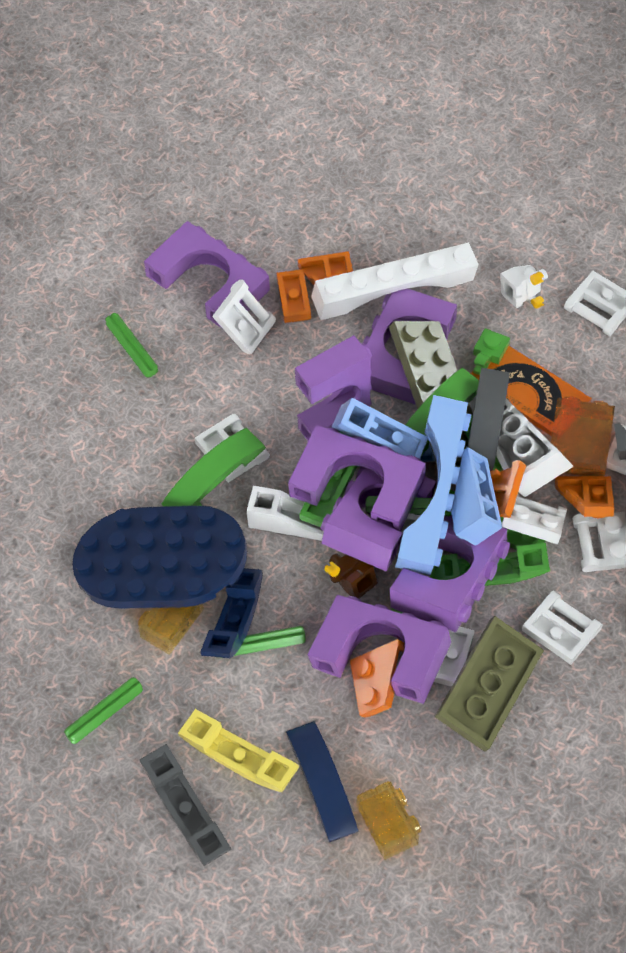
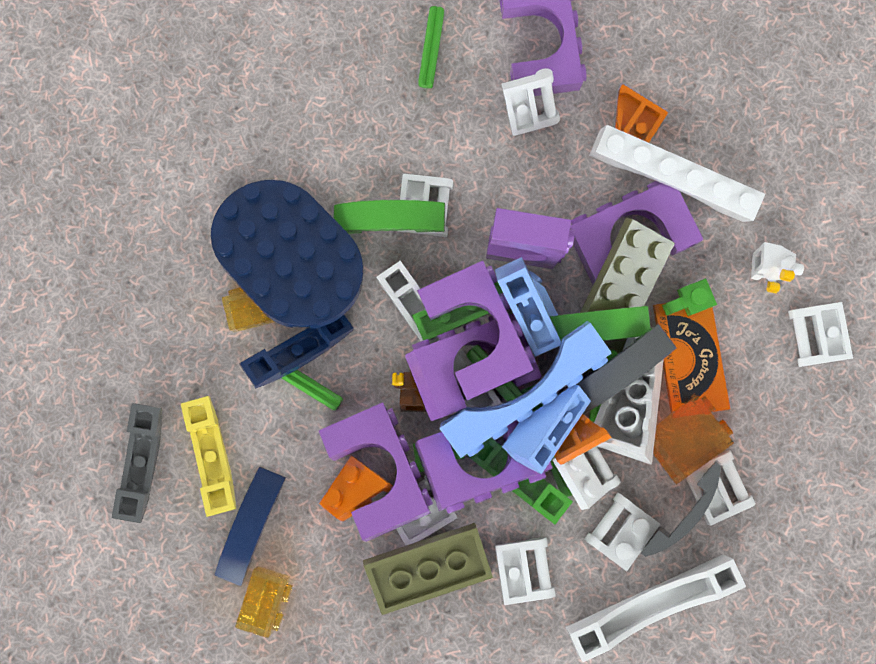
camera: 40 degrees right, 25 degrees up
(103, 710) = (150, 335): bright green axle -> none
(293, 296) = (590, 113): orange plate -> none
(588, 494) = (646, 491): orange wing -> none

